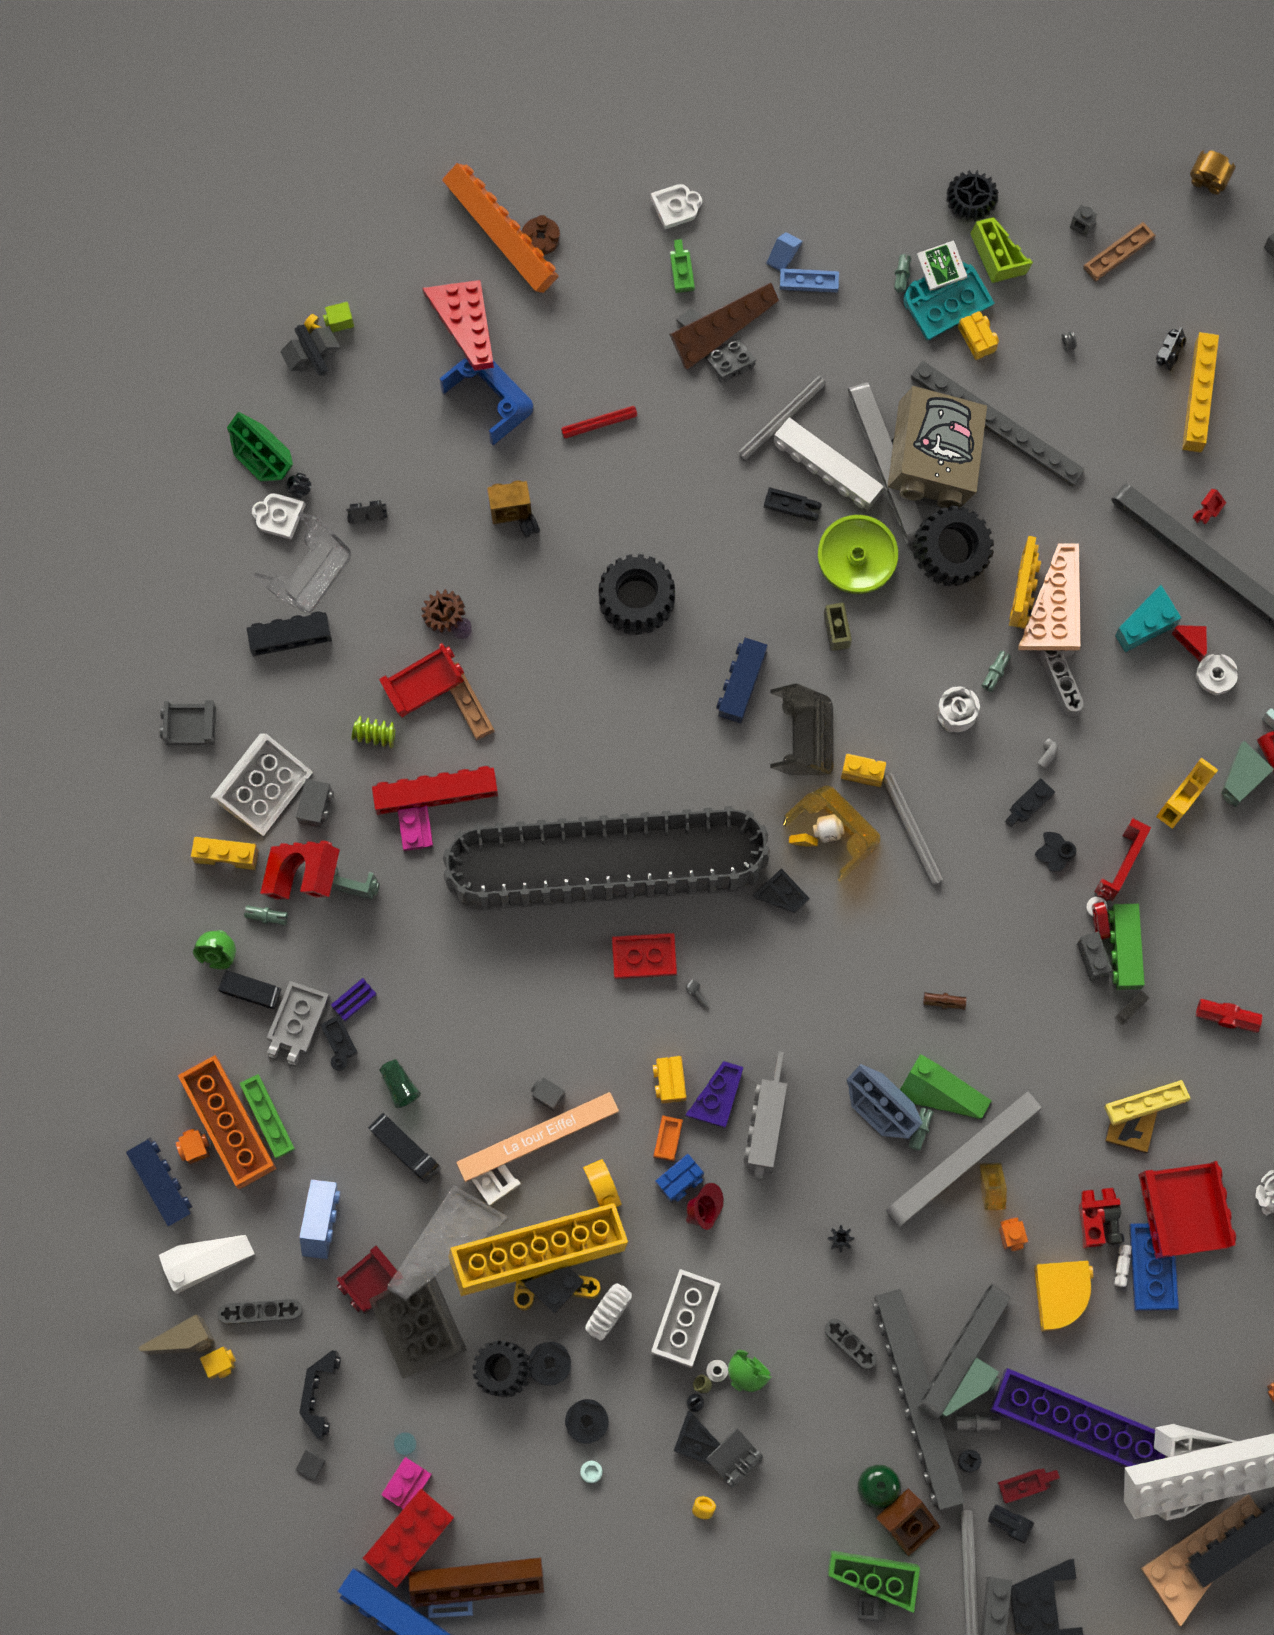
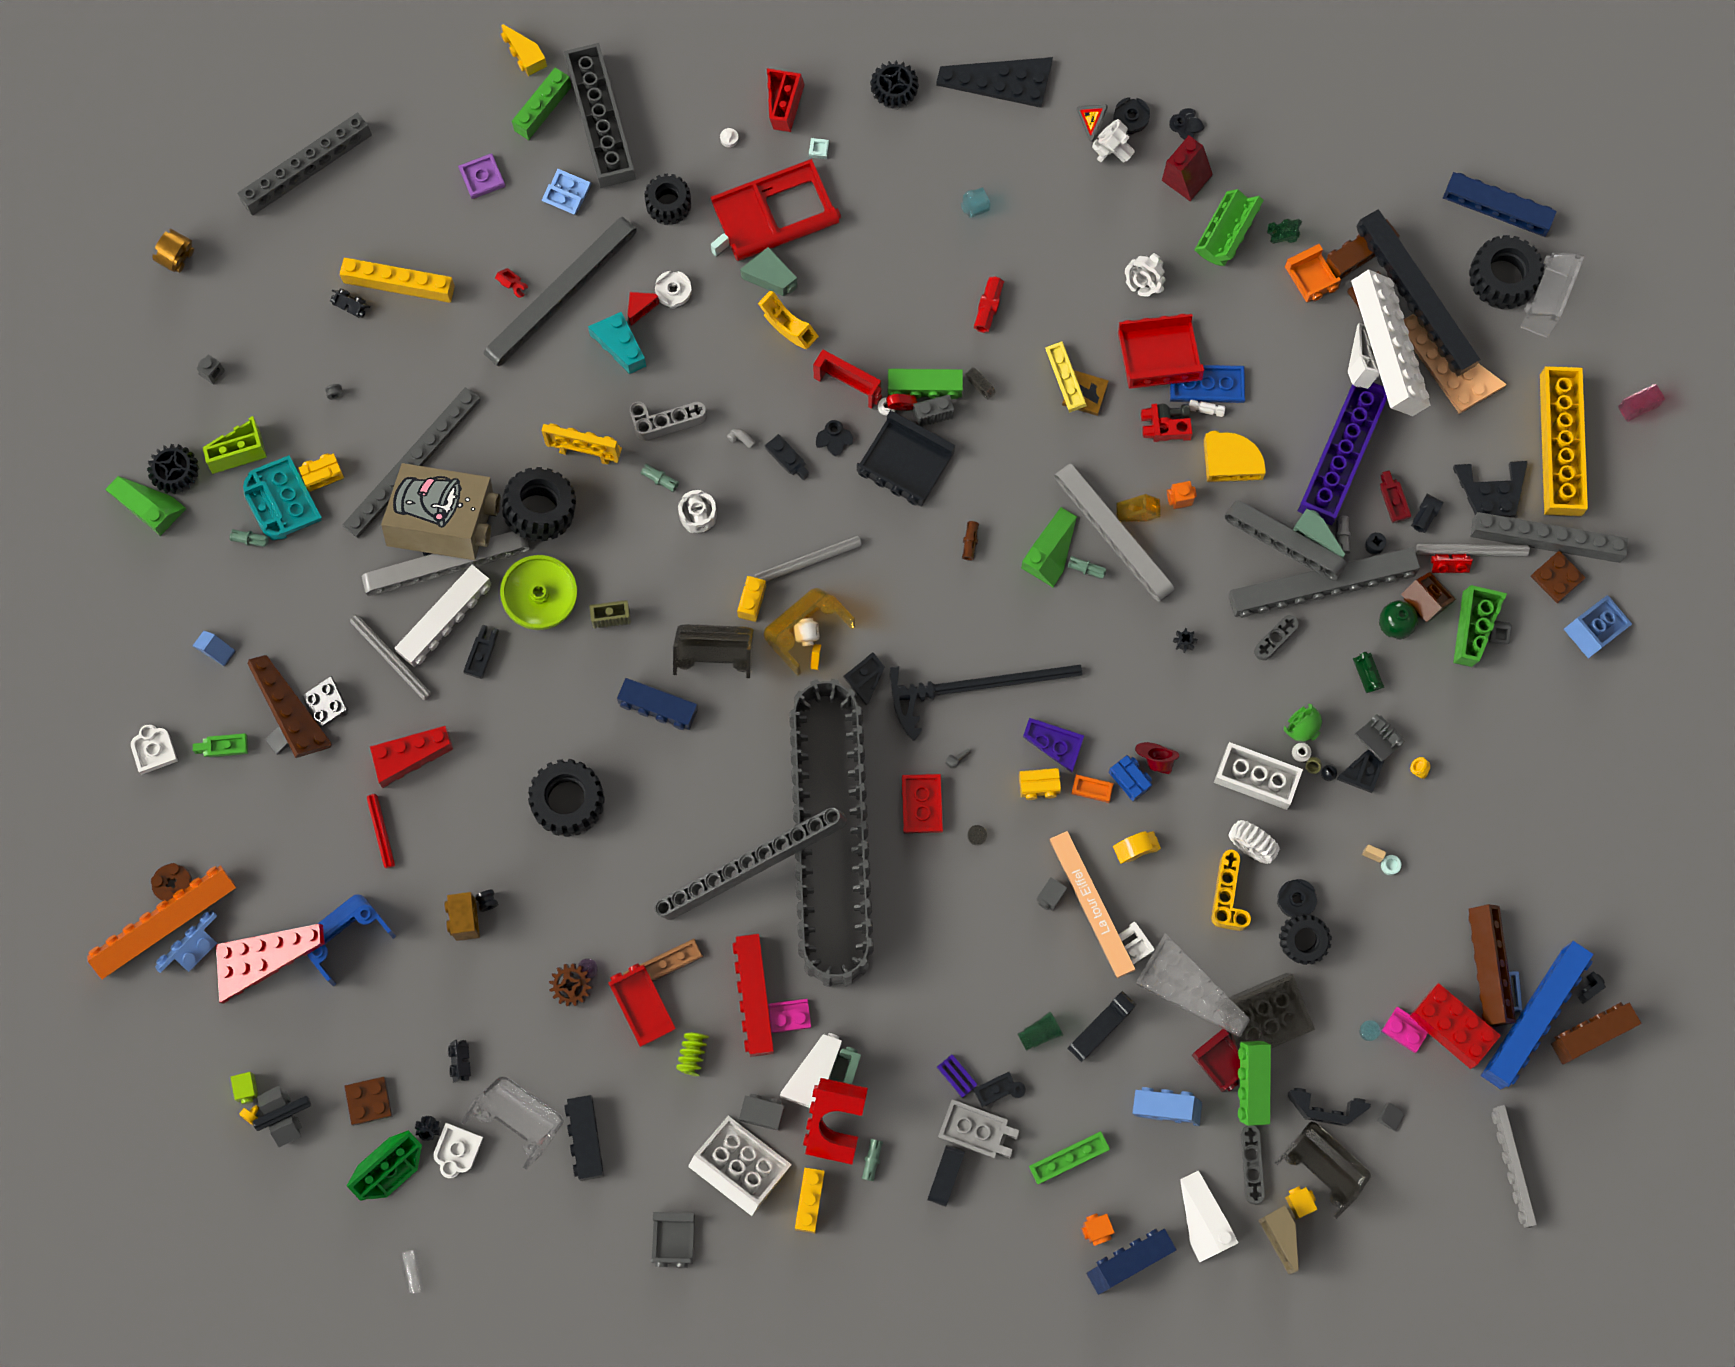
camera: 90 degrees left, 0 degrees up
(160, 482) = (412, 1272): none -> clear pin
(215, 948) = (906, 1207): bright green cylinder -> none
(227, 1122) = (1076, 1194): orange brick -> none
(244, 1601) = (1515, 1173): none -> light grey plate
(261, 1395) = (1329, 1163): none -> clear smoke windscreen
(327, 431) = (368, 1101): none -> reddish brown plate
(342, 1310) = (1254, 1082): none -> bright green brick
(358, 854) = (815, 1066): none -> white slope
(476, 258) = (191, 947): none -> medium blue bracket
(537, 1249) = (1201, 902): yellow brick -> none
(555, 1287) = (1233, 888): black wing -> none
(566, 775) = (759, 864): none -> dark grey beam
(576, 1427) = (1338, 873): black plate -> none
(602, 1451) = (1374, 853): none -> tan tile
(612, 1015) = (977, 835): none -> clear smoke tile
(675, 433) = (409, 753): none -> red wedge
(767, 1122) = (1081, 697): light grey piece -> none
(770, 962) = (931, 690): none -> black piece
(809, 280) = (247, 625): medium blue plate -> none
(814, 1450) = (1368, 672): none -> dark green hinge
(882, 1103) = (1066, 596): sand blue wedge -> none
(932, 176) = (149, 505): none -> bright green wedge
(941, 265) = (249, 497): tile -> none
(949, 1541) = (1458, 564): none -> red hinge
(1034, 929) = (906, 459): none -> black panel
(1056, 613) = (614, 417): light nougat wing -> none
(1119, 251) = (244, 341): medium nougat tile -> none

